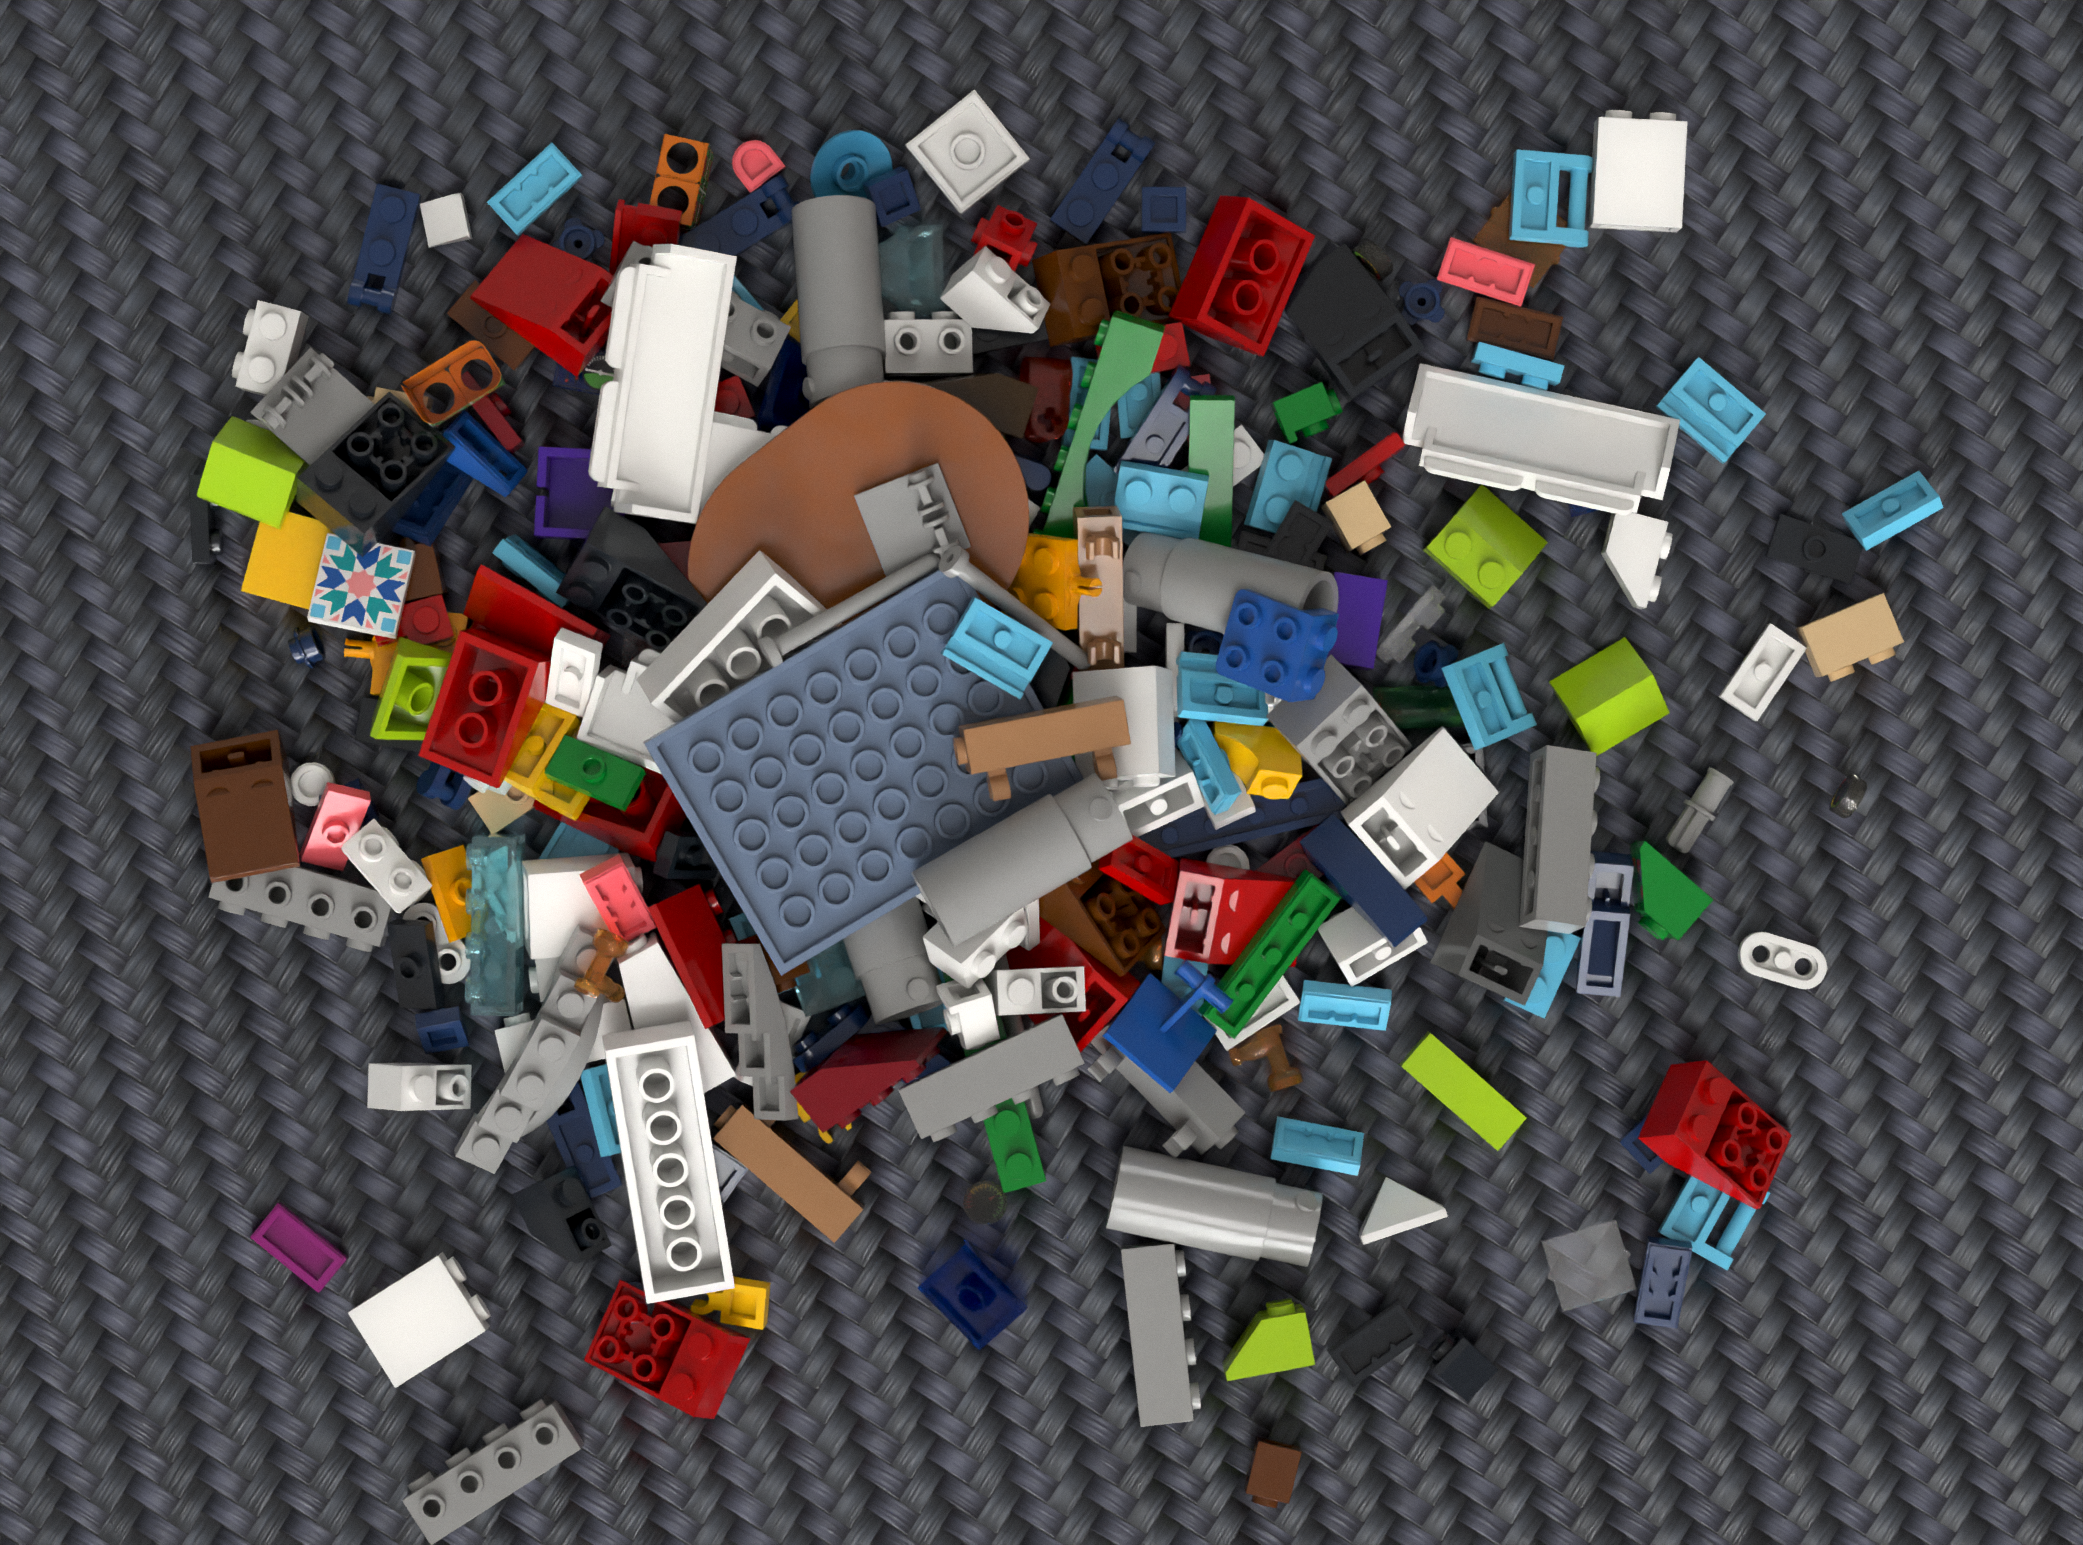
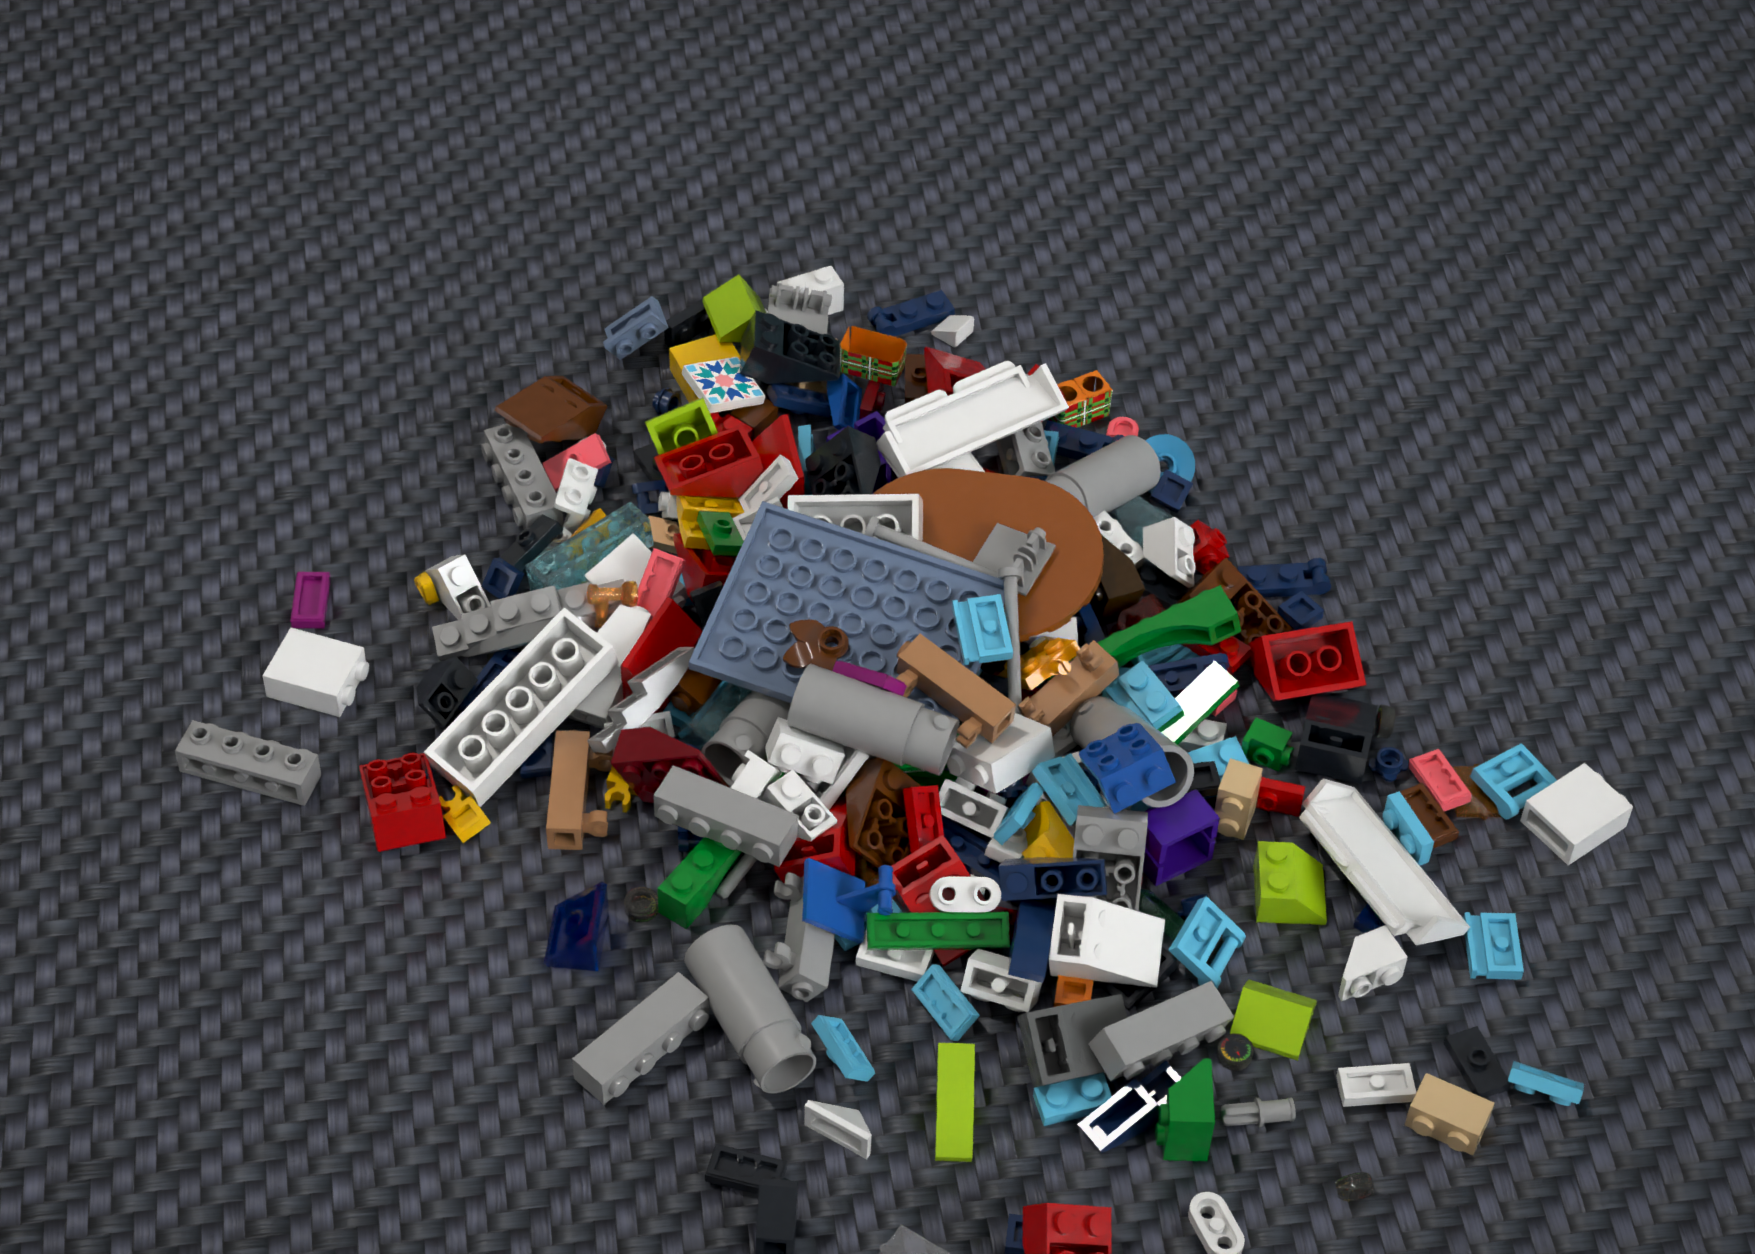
camera: 45 degrees right, 40 degrees down
(171, 598) = (635, 328): none -> sand blue bracket
(386, 1120) = (426, 588): none -> yellow tile
(535, 189) = (999, 348): medium azure plate -> none
(874, 842) = (812, 647): none -> reddish brown plate
(967, 152) = (1233, 512): white tile -> none
(973, 824) = (870, 677): none -> magenta tile
(1260, 901) = (965, 894): none -> white plate
(1269, 1045) = (868, 1002): clear orange piece -> none
(1271, 1342) = (691, 1097): lime slope -> none
(1272, 1472) = (606, 1168): reddish brown brick -> none
(1311, 811) = (1051, 876): none -> dark blue slope
(1423, 612) = (1204, 878): clear plate -> none
(1617, 769) = (1235, 1052): none -> tile

